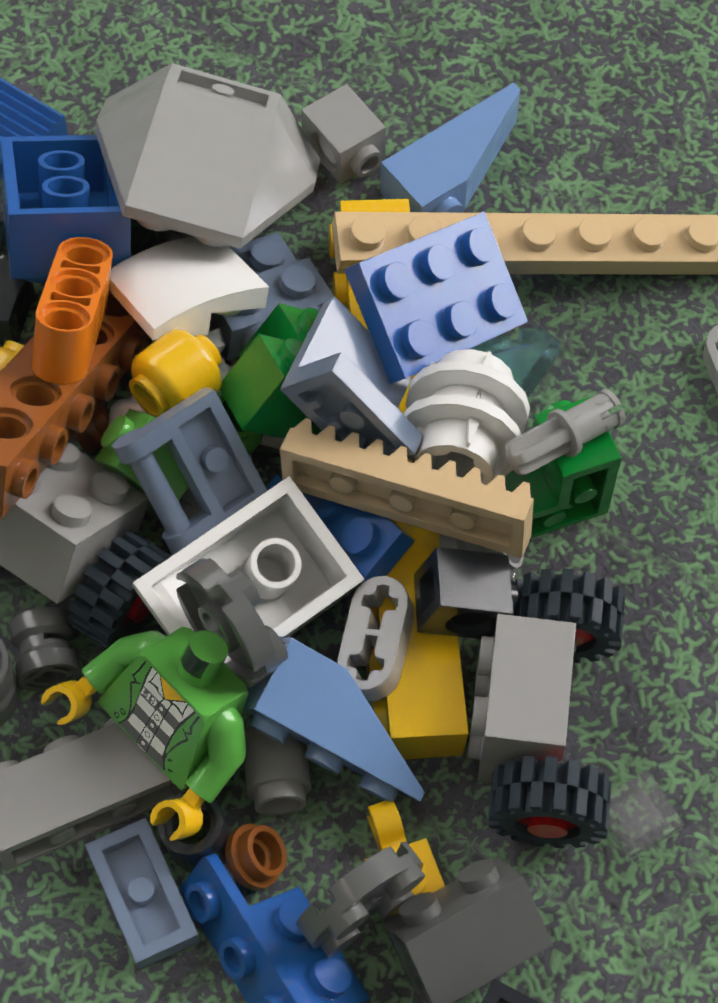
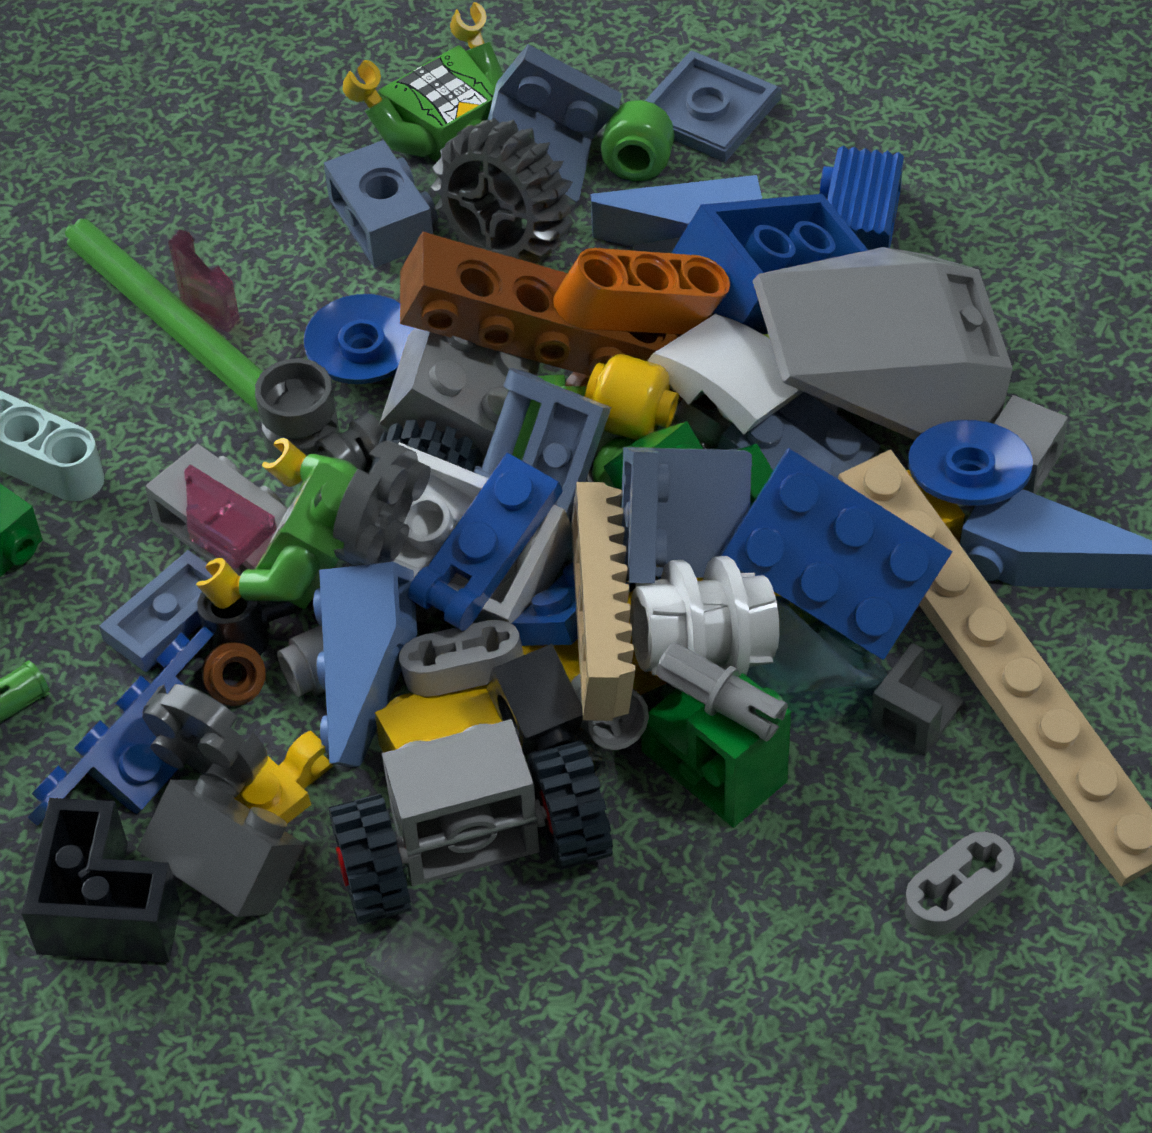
camera: 70 degrees right, 10 degrees down
(88, 791) = (224, 519): none -> clear pink tile
(288, 554) = (486, 541): none -> blue plate
(368, 166) = (970, 462): none -> blue dish
(576, 329) = (911, 705): none -> dark grey panel

